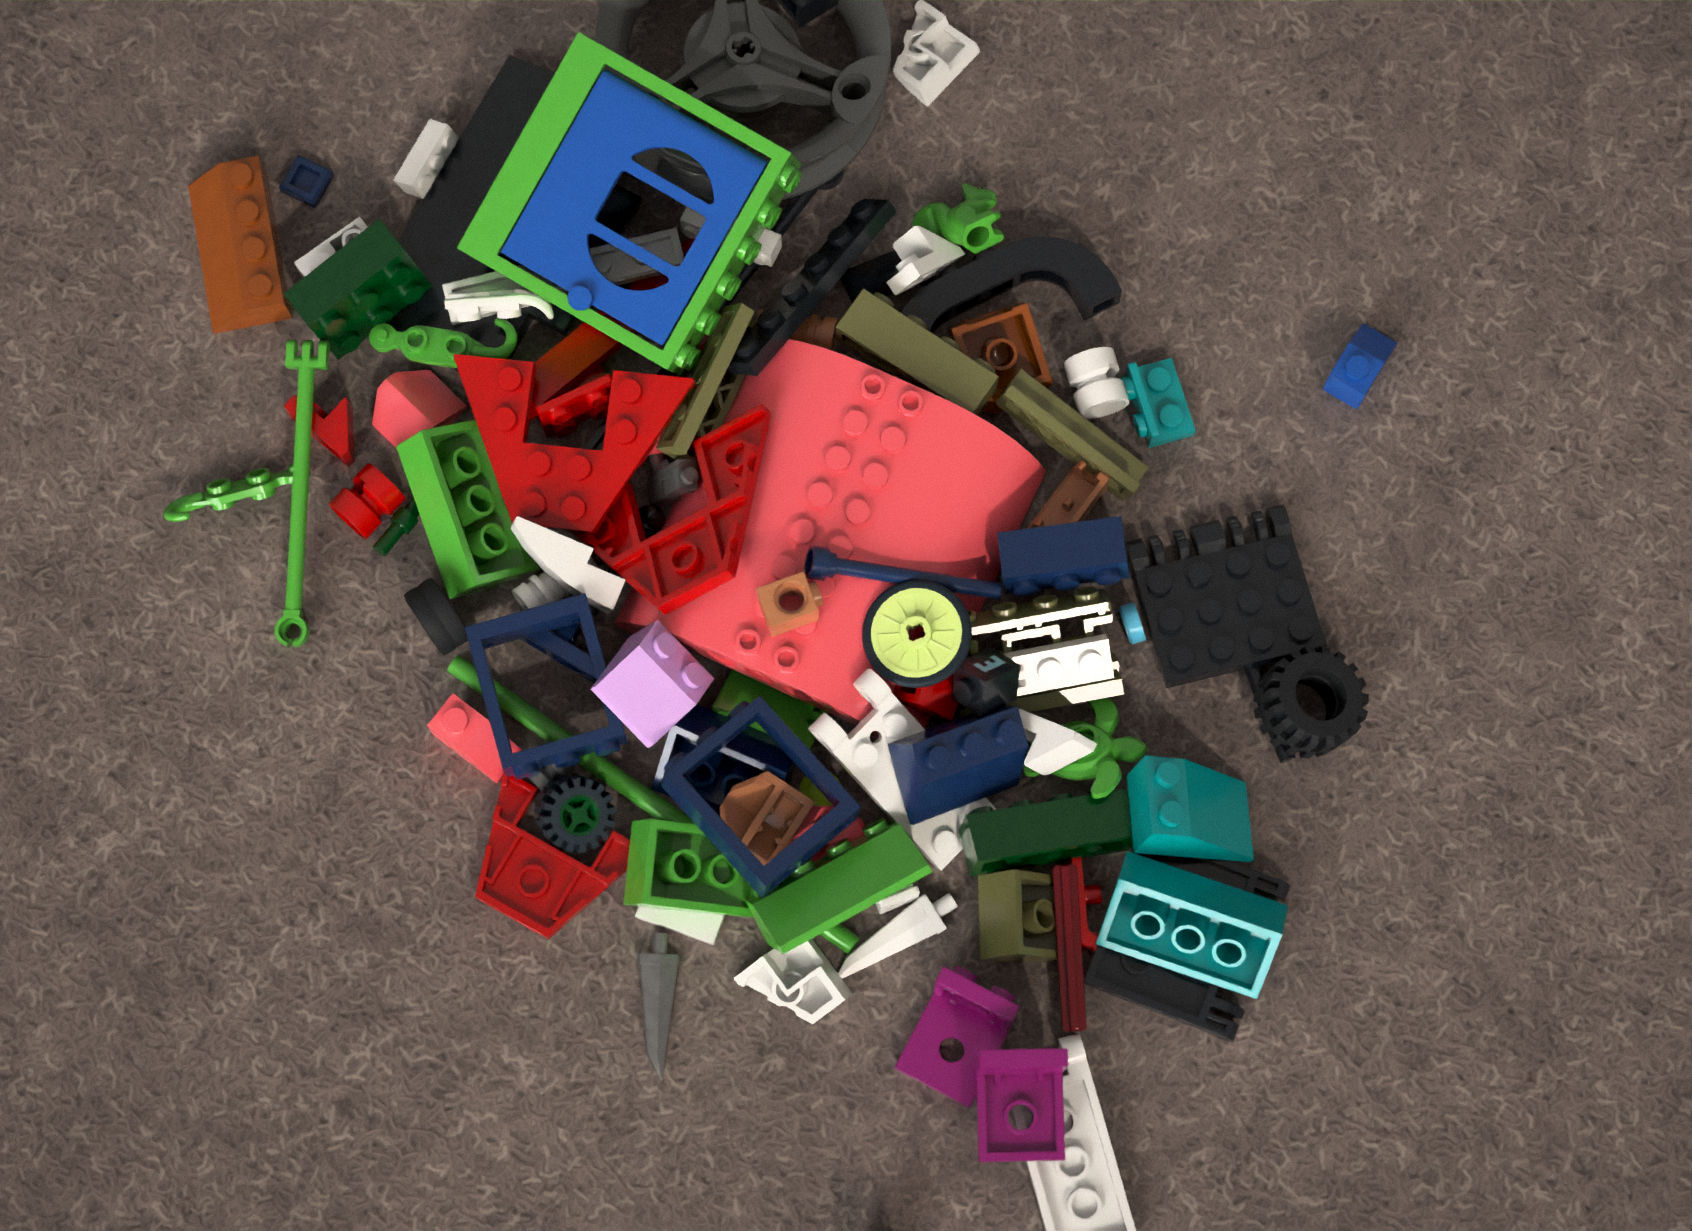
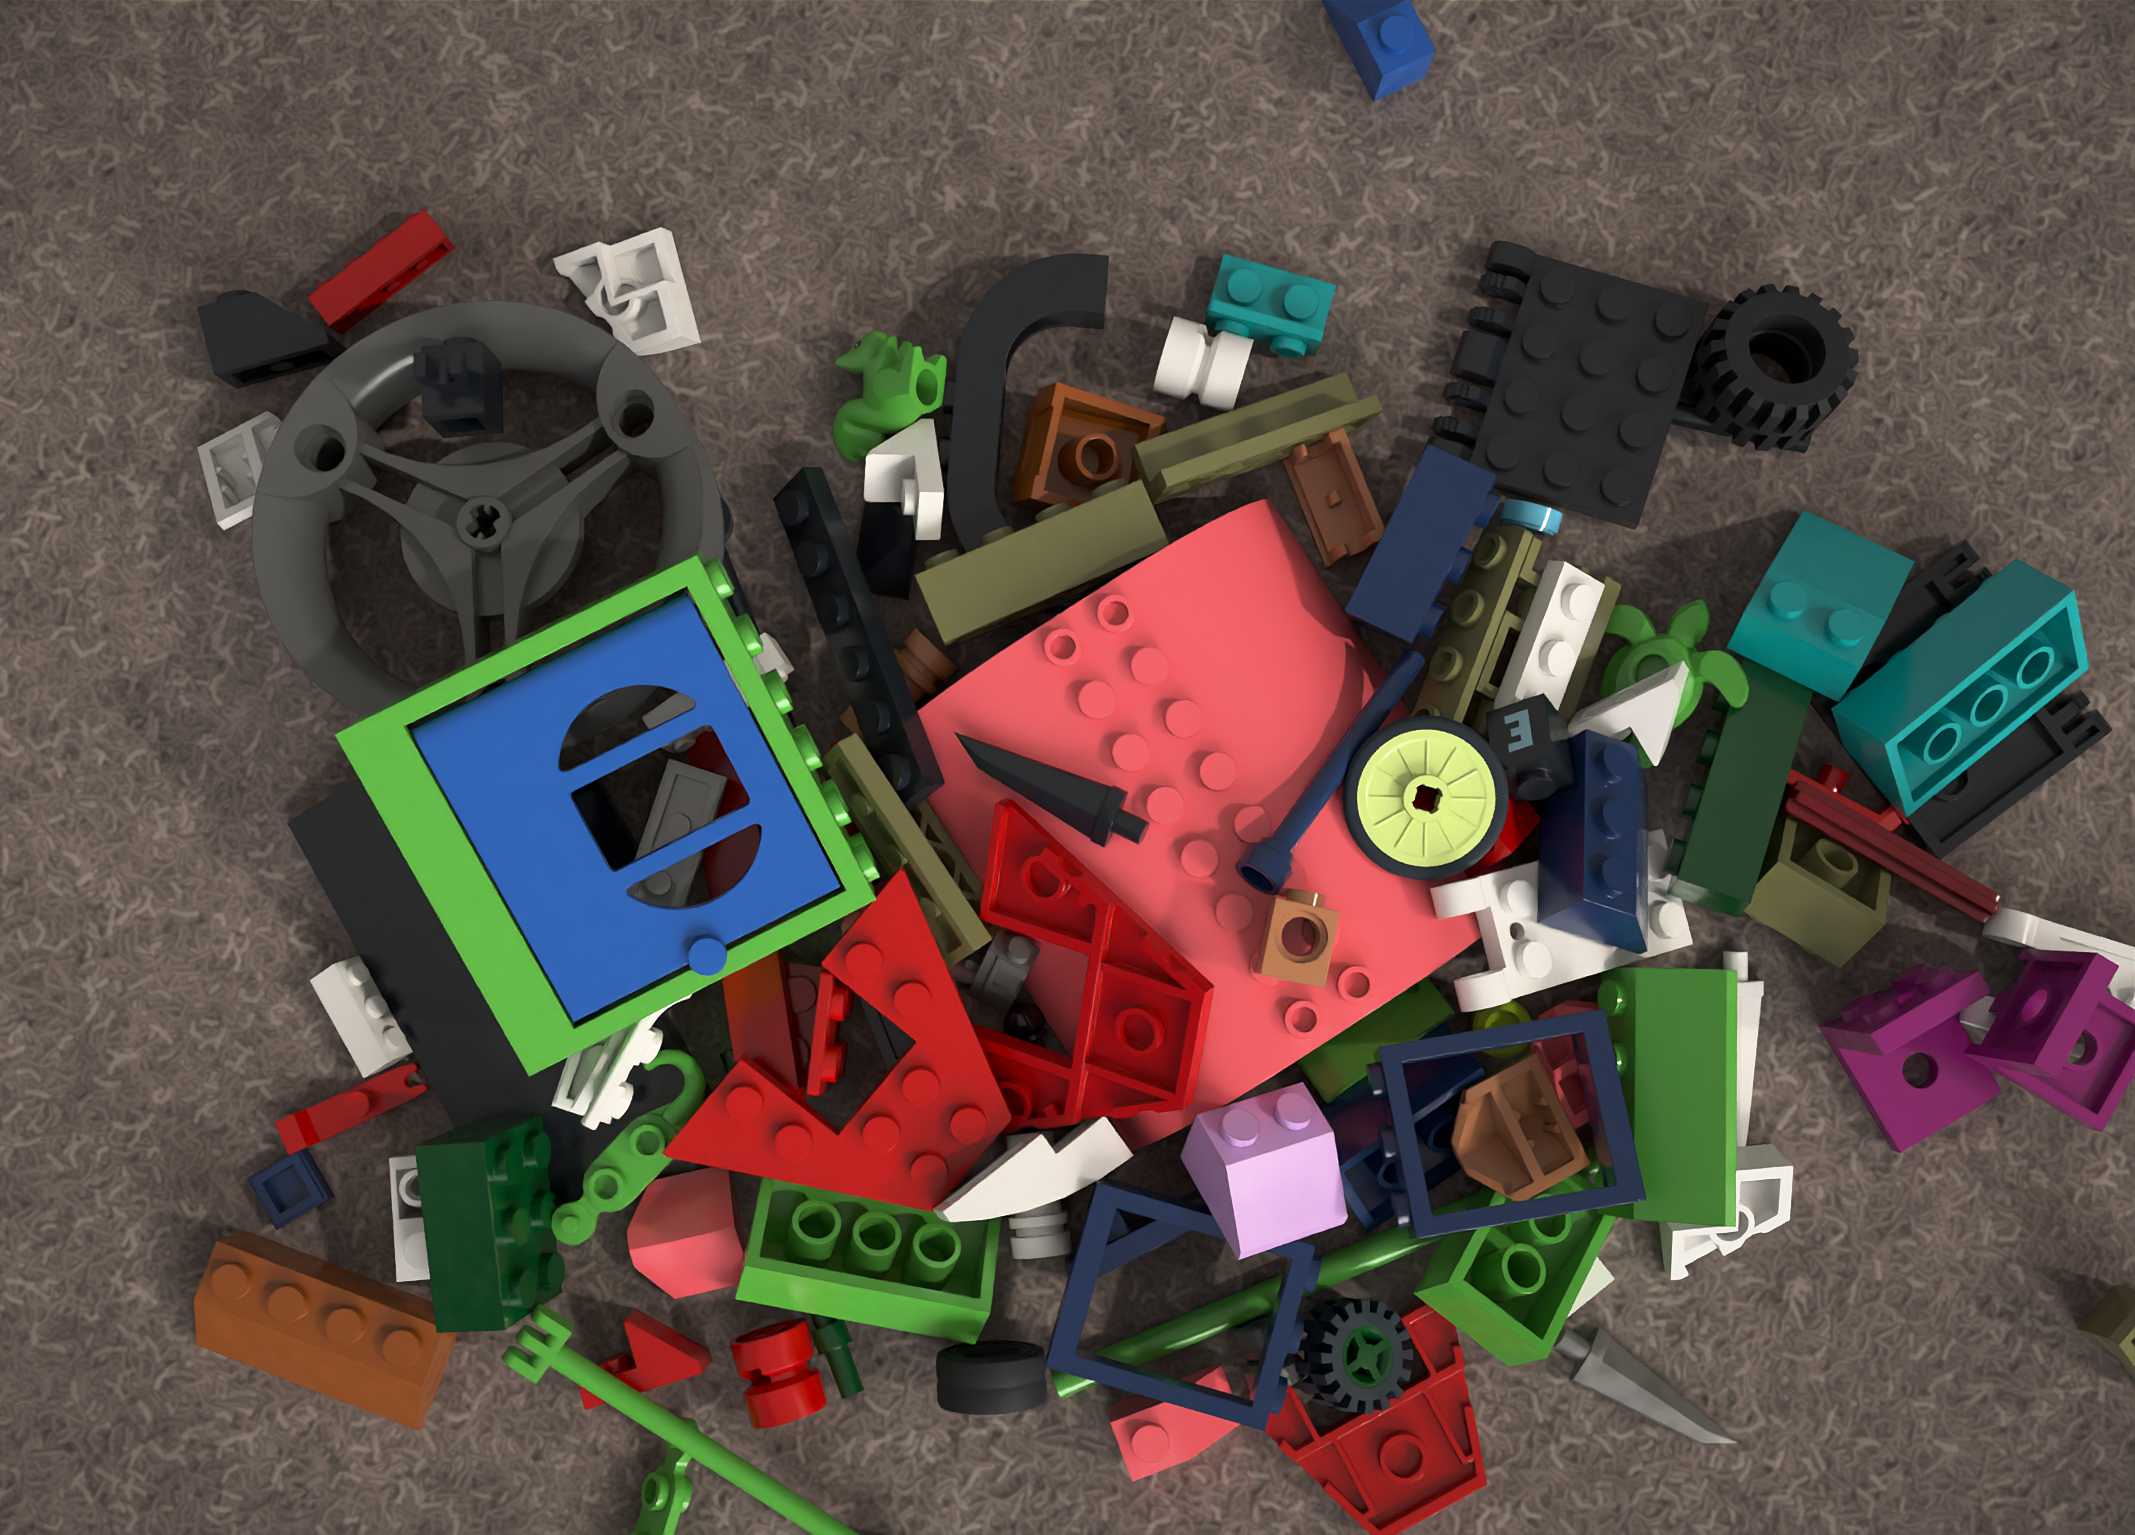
camera: 55 degrees left, 10 degrees up
(370, 185) = (349, 1109): none -> red piece
(792, 447) = (1076, 800): none -> black bar

